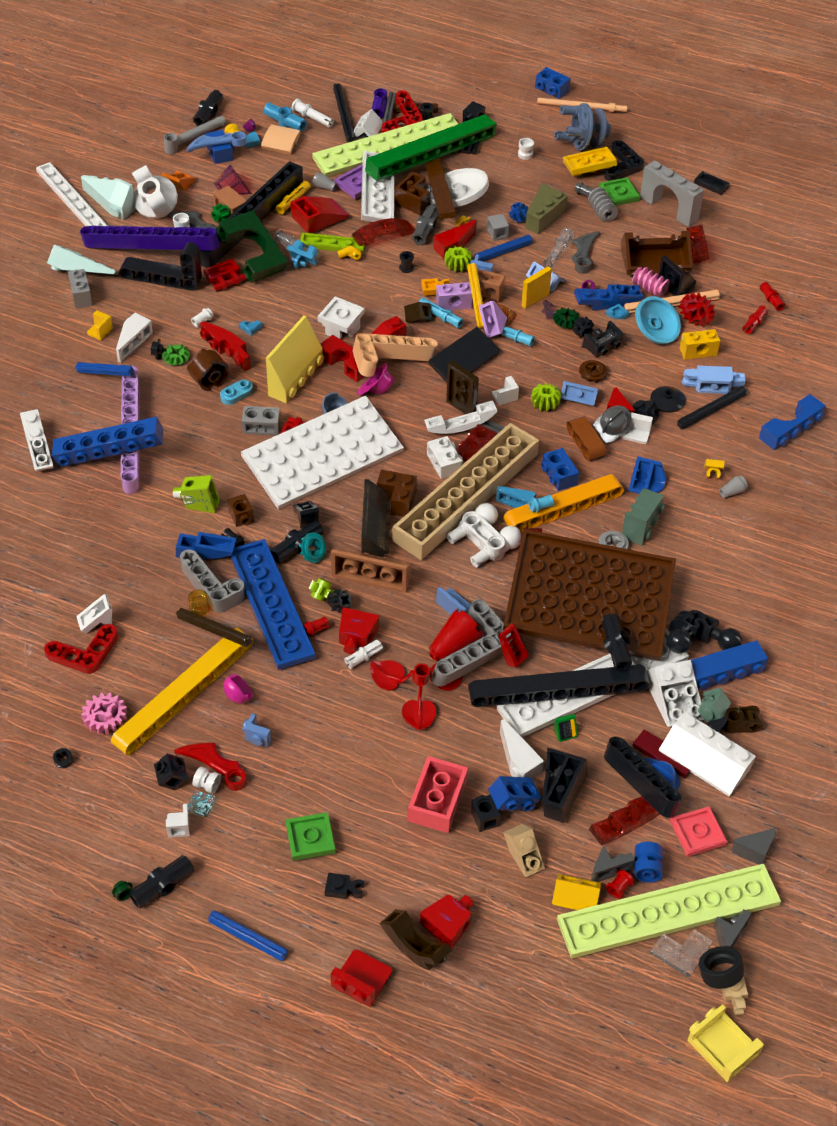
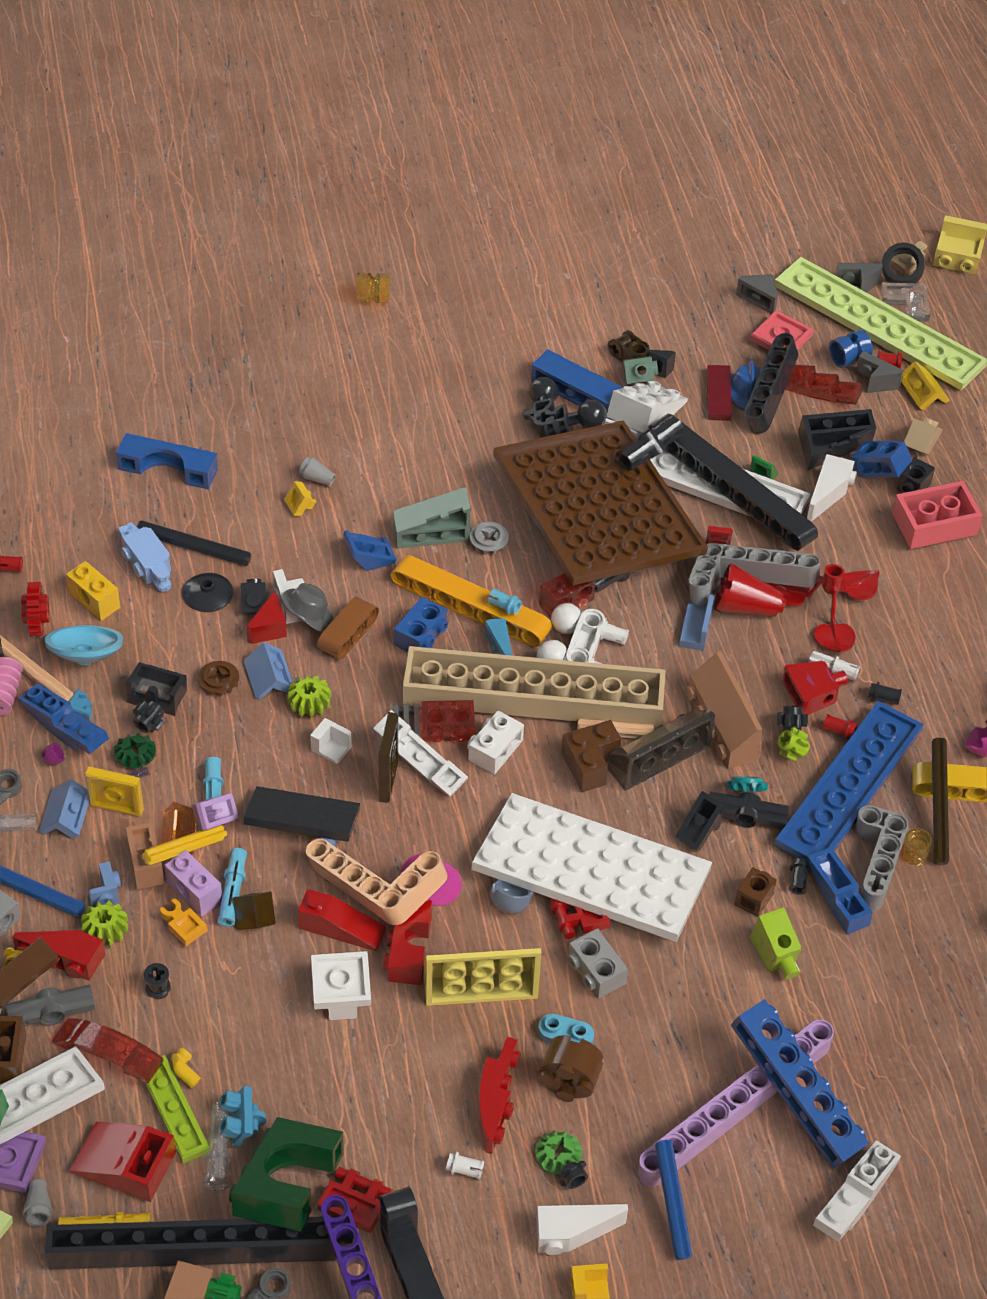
camera: 125 degrees left, 0 degrees up
(250, 327) = (430, 1098): dark azure tile -> none
(320, 666) = (884, 693): none -> black pin
(707, 753) = (698, 355): white slope -> none

